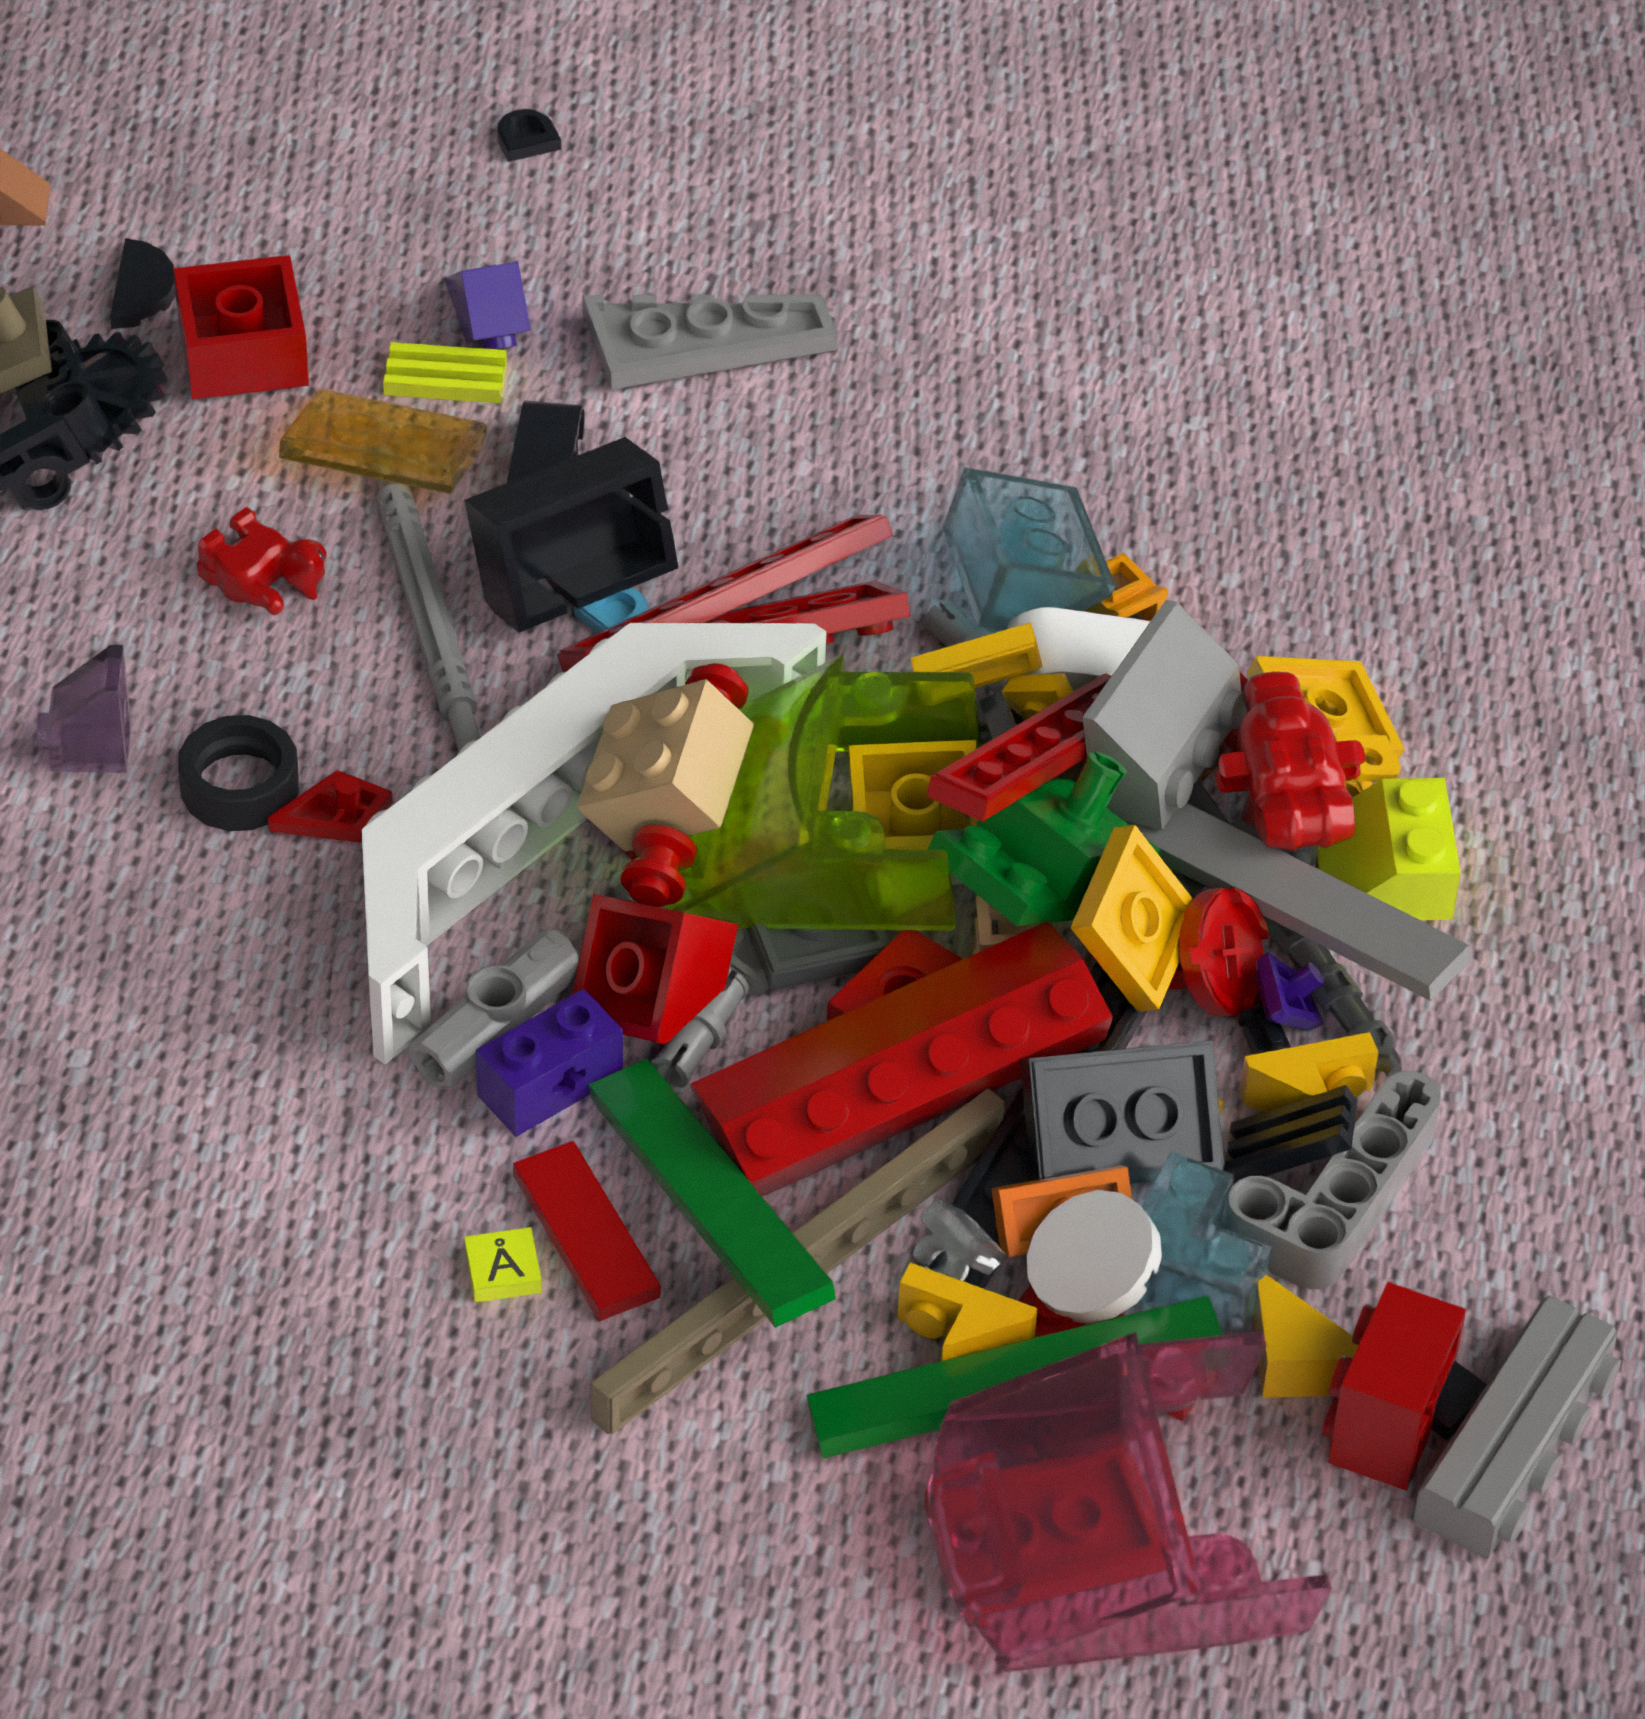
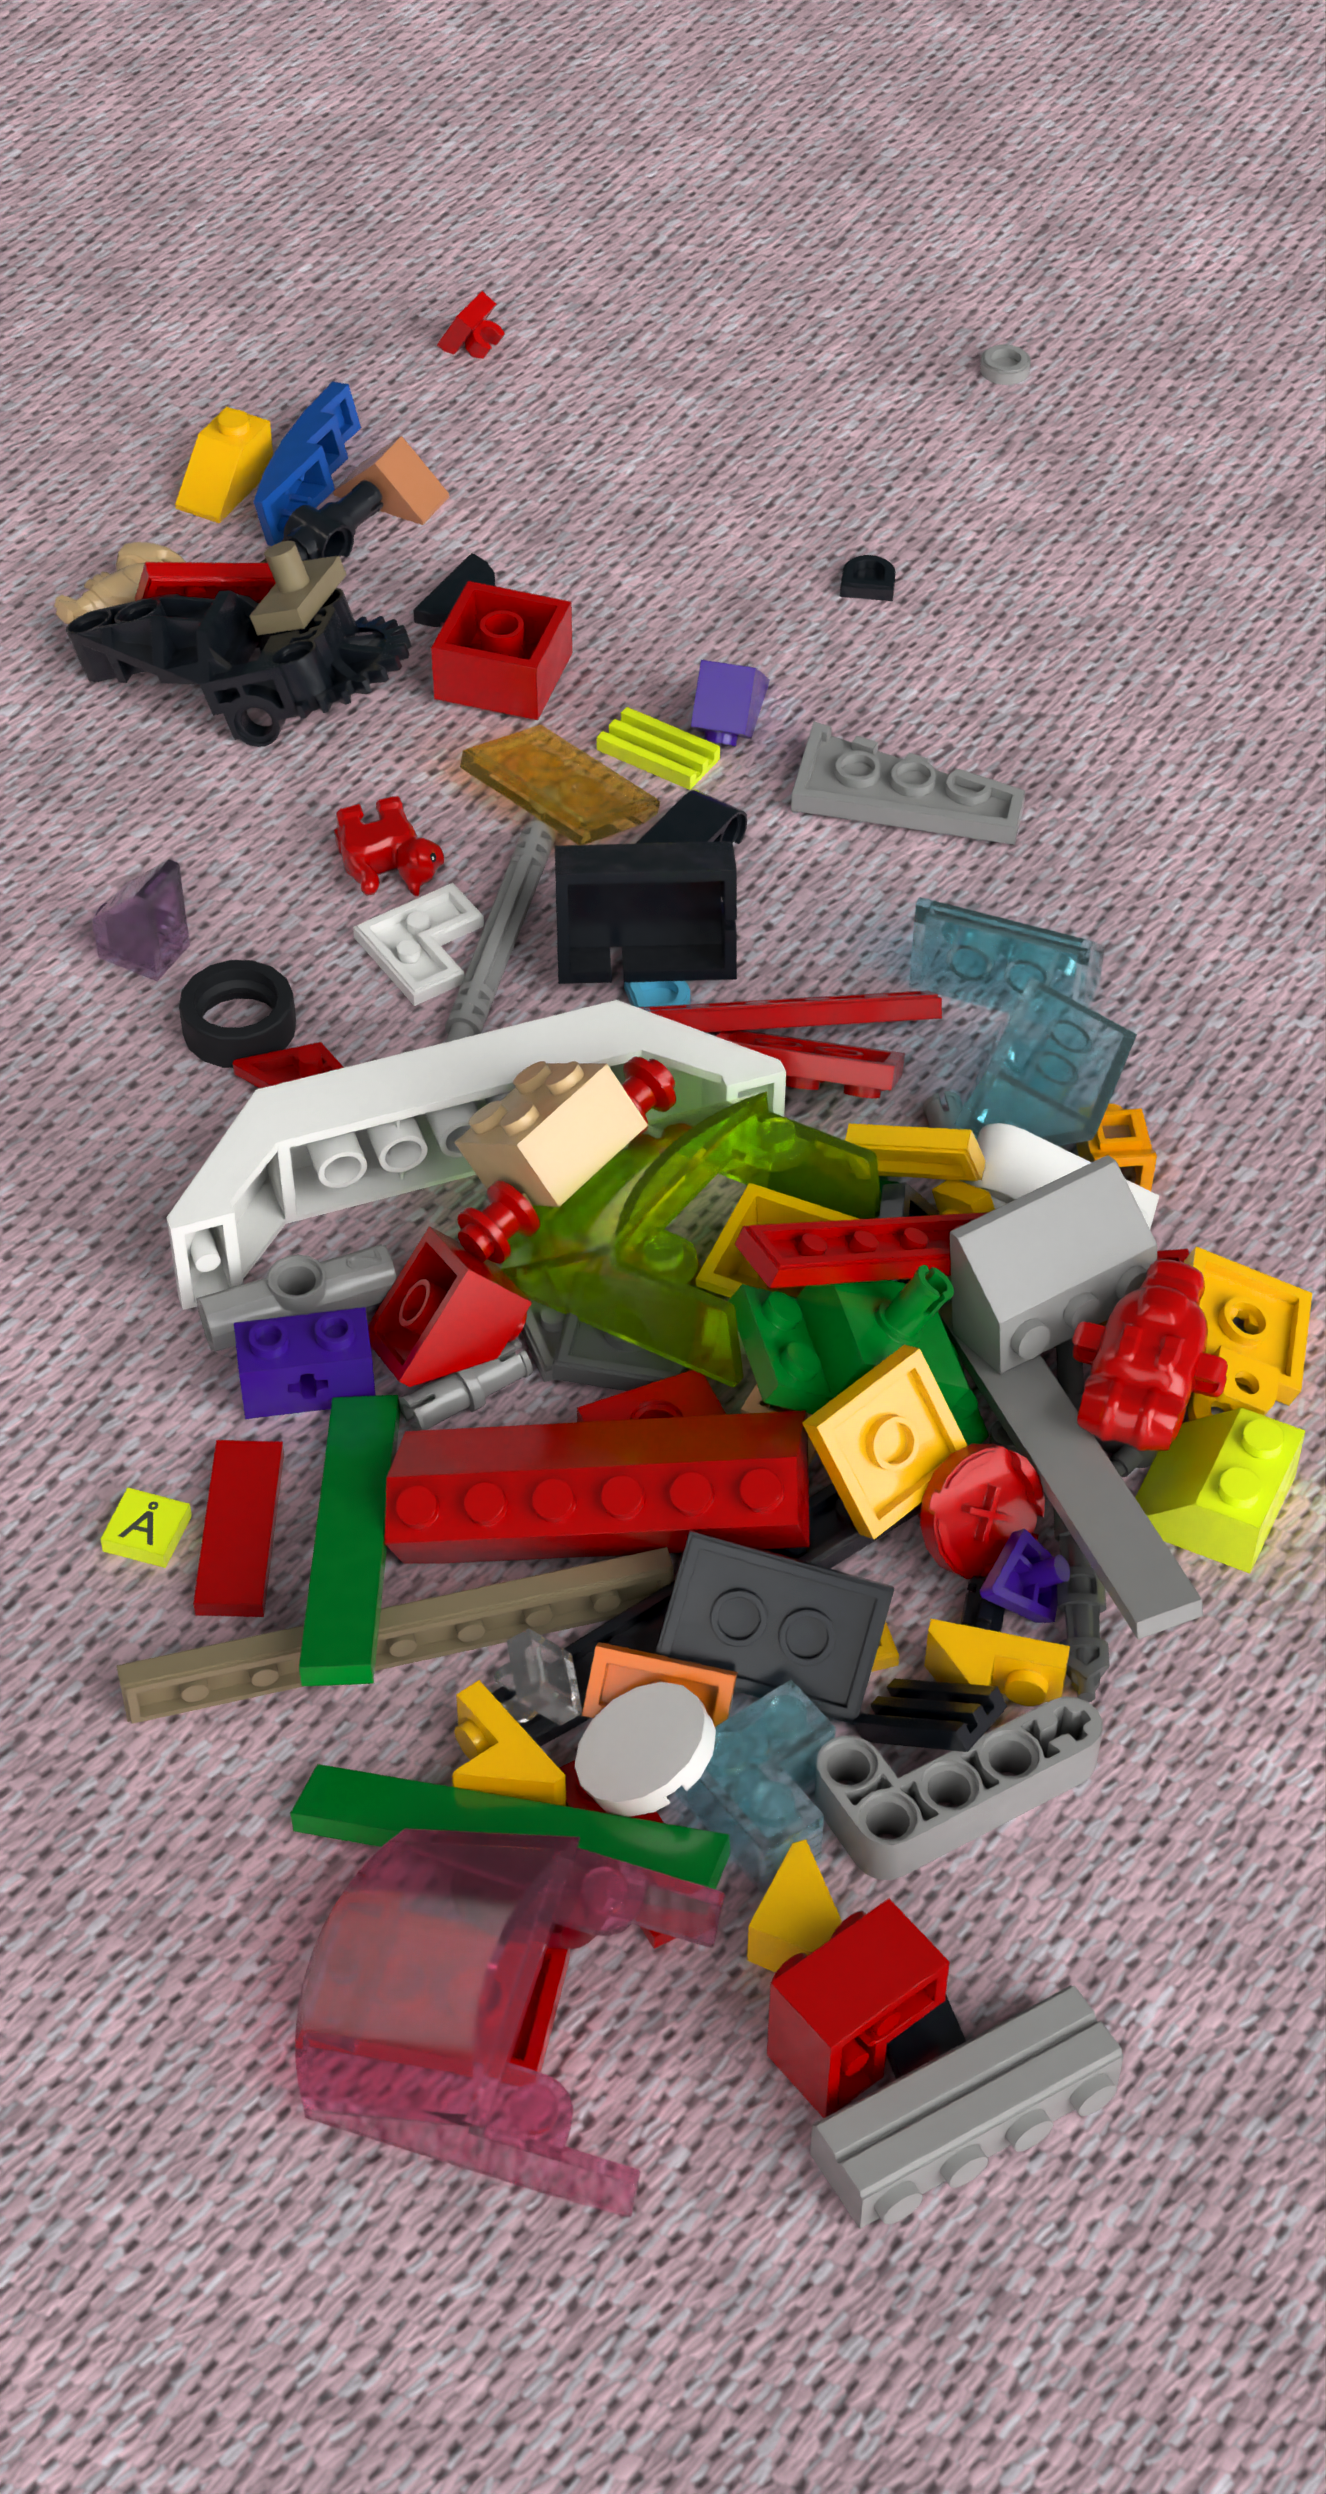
camera: 30 degrees right, 0 degrees up
(344, 644) = (410, 940): none -> white tile
(909, 462) = (992, 957): none -> clear light blue slope

